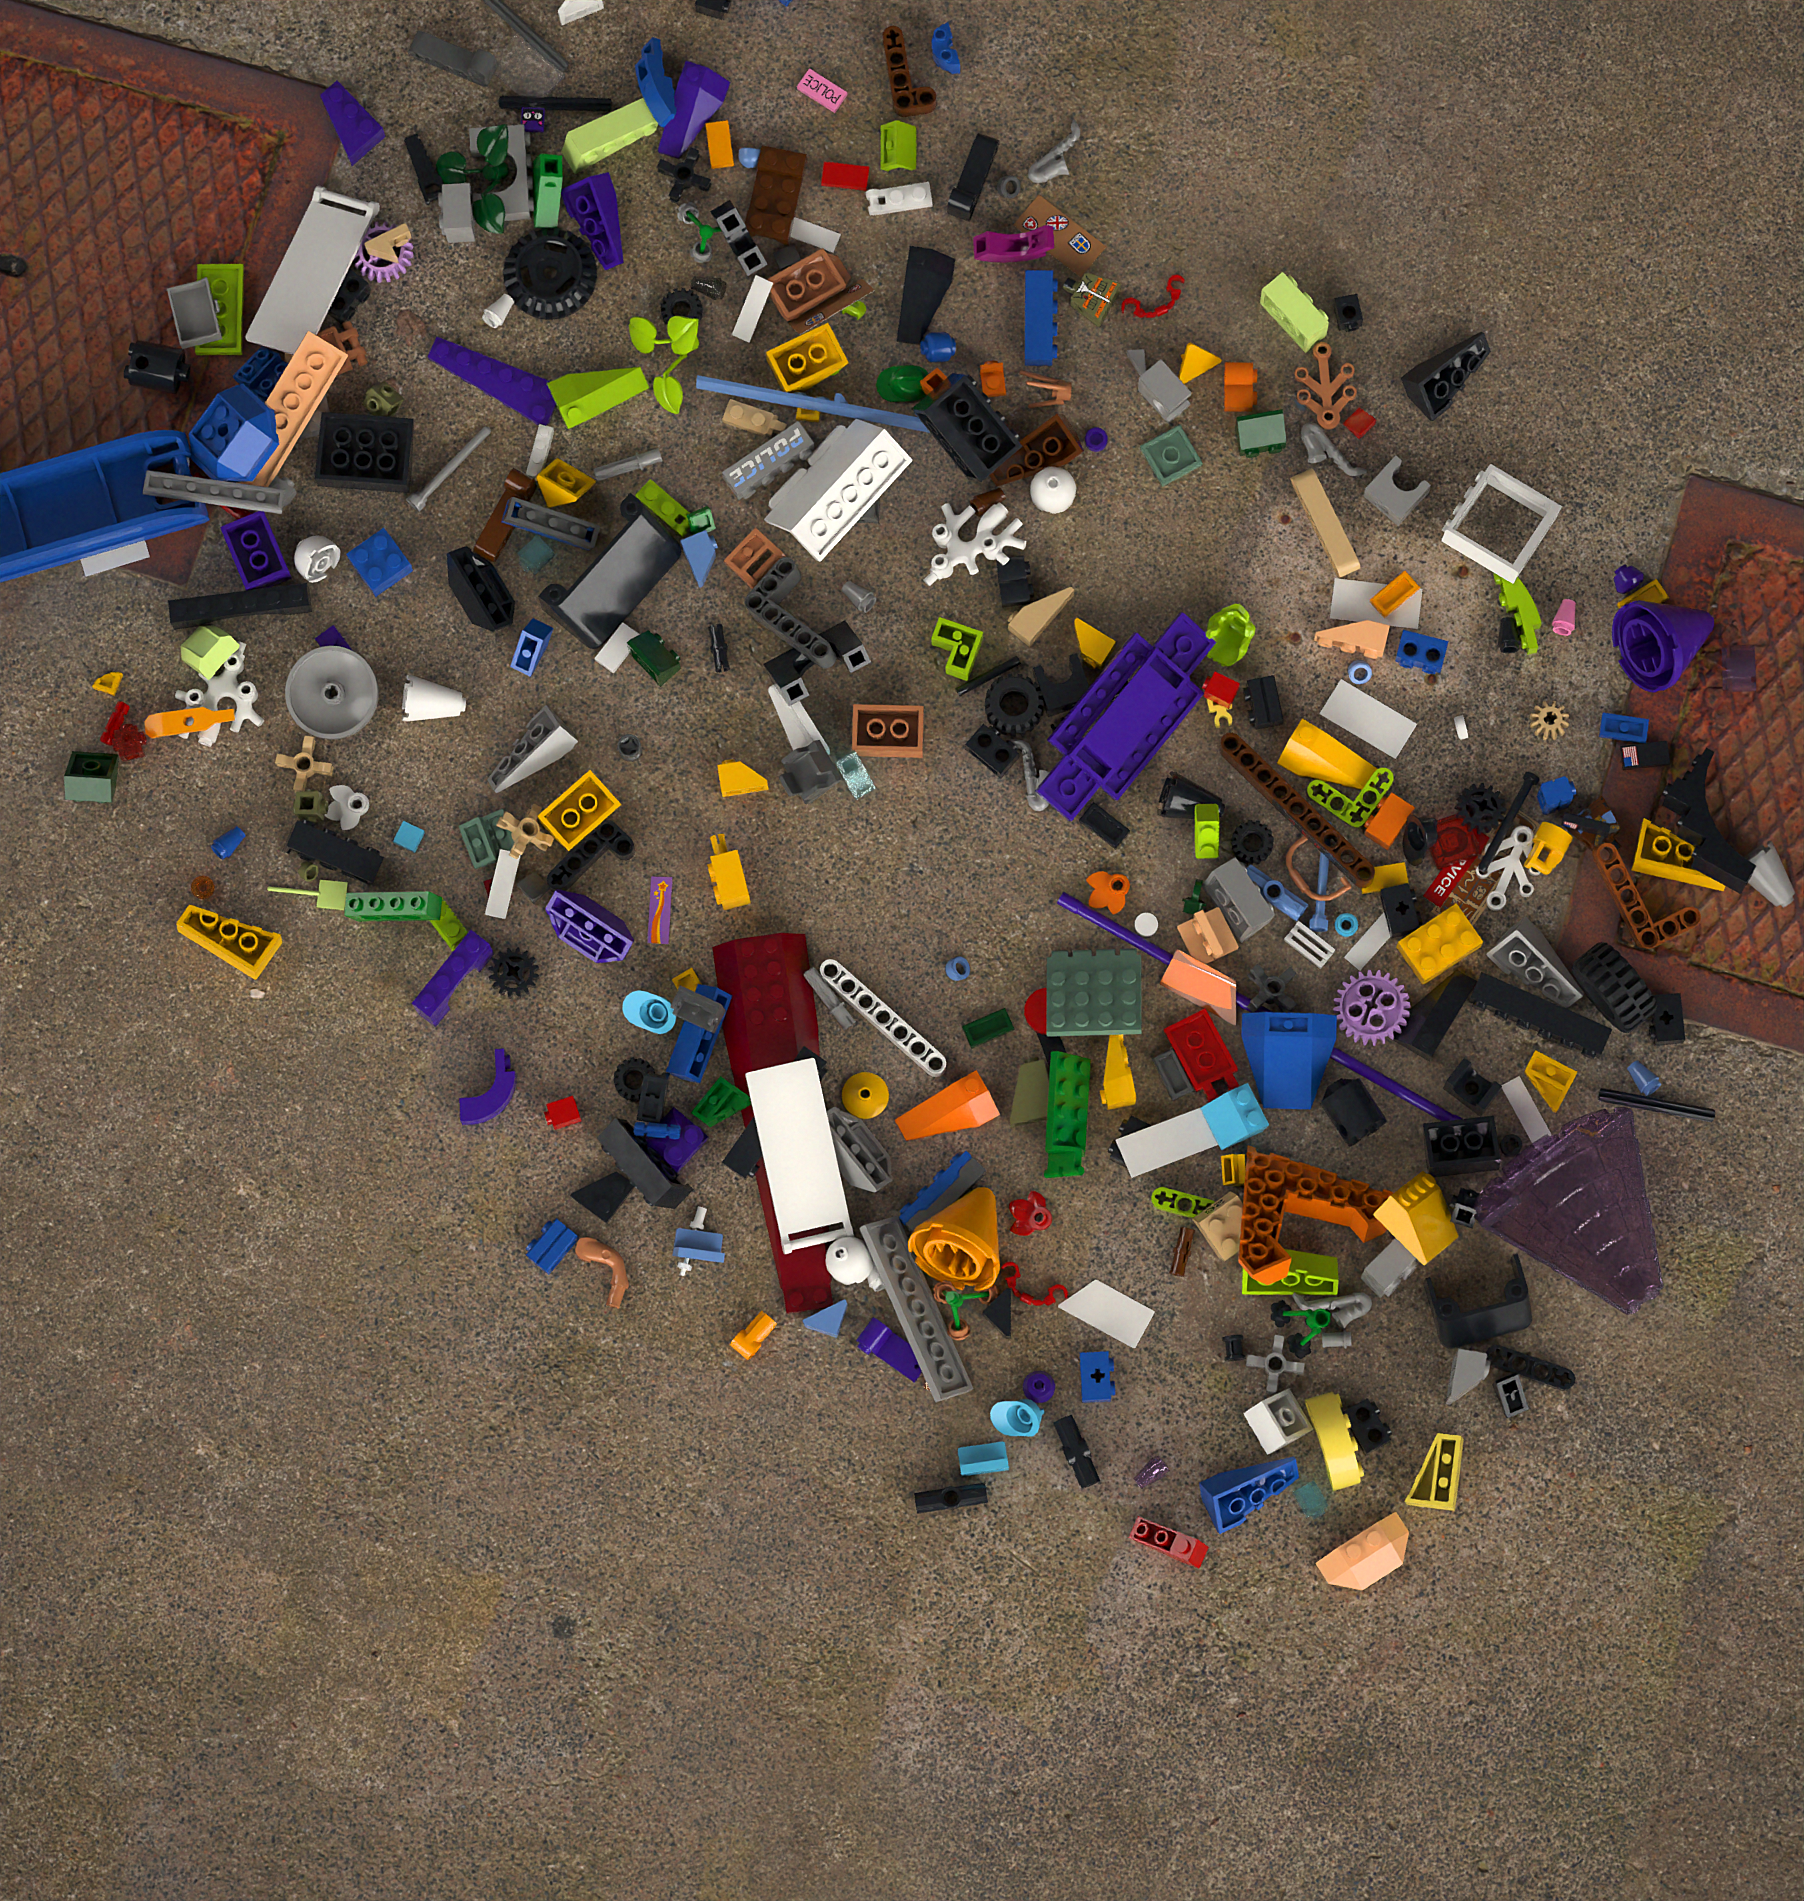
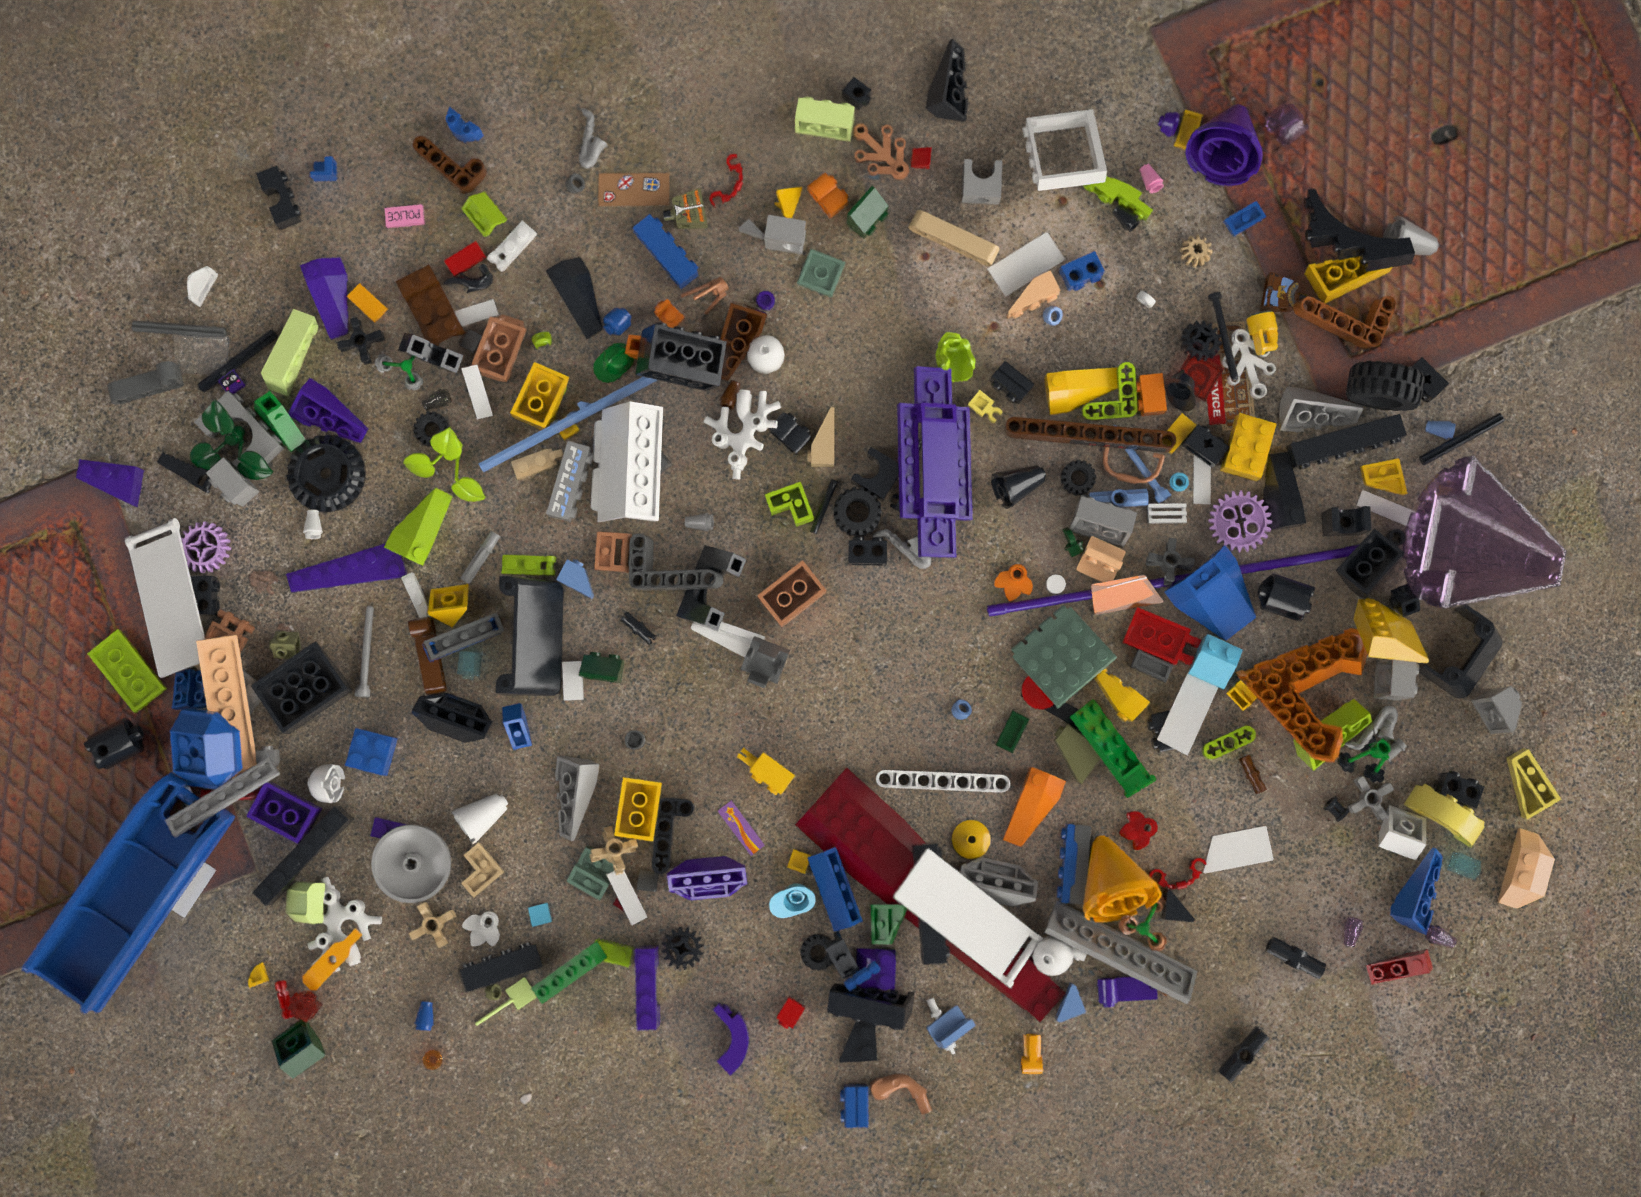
camera: 45 degrees left, 5 degrees up
(195, 313) = (112, 687): light grey container -> none
(236, 943) = (486, 1079): yellow wedge -> none
(305, 801) = (453, 950): olive brick -> none
(382, 245) = (199, 543): tan slope -> none
(393, 756) = (486, 870): none -> tan plate
(654, 86) = (292, 297): blue slope -> none
(697, 1009) = (824, 877): dark grey hinge -> none
(701, 520) = (558, 555): green tile -> none
(739, 779) = (721, 702): yellow slope -> none
(749, 157) = (393, 295): medium blue piece -> none
(829, 998) = (897, 796): light grey axle -> none
(831, 306) = (527, 350): medium nougat sticker -> none
(832, 205) = (473, 284): none -> black piece
(855, 774) = (794, 639): clear light blue slope -> none
(973, 177) = (548, 195): black beam -> none
(983, 1459) = (1241, 1011): medium azure panel -> none
(1013, 247) = (612, 218): magenta arch -> none
(1017, 1417) = (1243, 966): medium azure piece -> none
(1038, 1394) = (1232, 932): dark purple cone -> none
(1090, 1389) = (1257, 895): blue brick -> none
(1093, 645) = (873, 433): yellow slope -> none
(1104, 825) = (976, 542): black tile -> none
(1207, 831) = (1047, 494): lime brick -> none
(1220, 689) = (980, 396): red brick -> none
(1222, 1225) = (1268, 736): tan brick -> none
(1230, 1546) = (1439, 936): none -> cone
(1318, 442) = (906, 191): light grey piece -> none
(1368, 719) = (1082, 340): white sticker -> none
(1394, 594) = (1033, 249): light orange tile -> none
(1511, 1395) = (1529, 694): black slope -> none
(1530, 1365) = (1523, 666): black beam -> none
(1555, 795) = (1242, 294): blue brick -> none
(1586, 824) = (1279, 297): black tile -> none
(1644, 755) = (1270, 225): black tile -> none

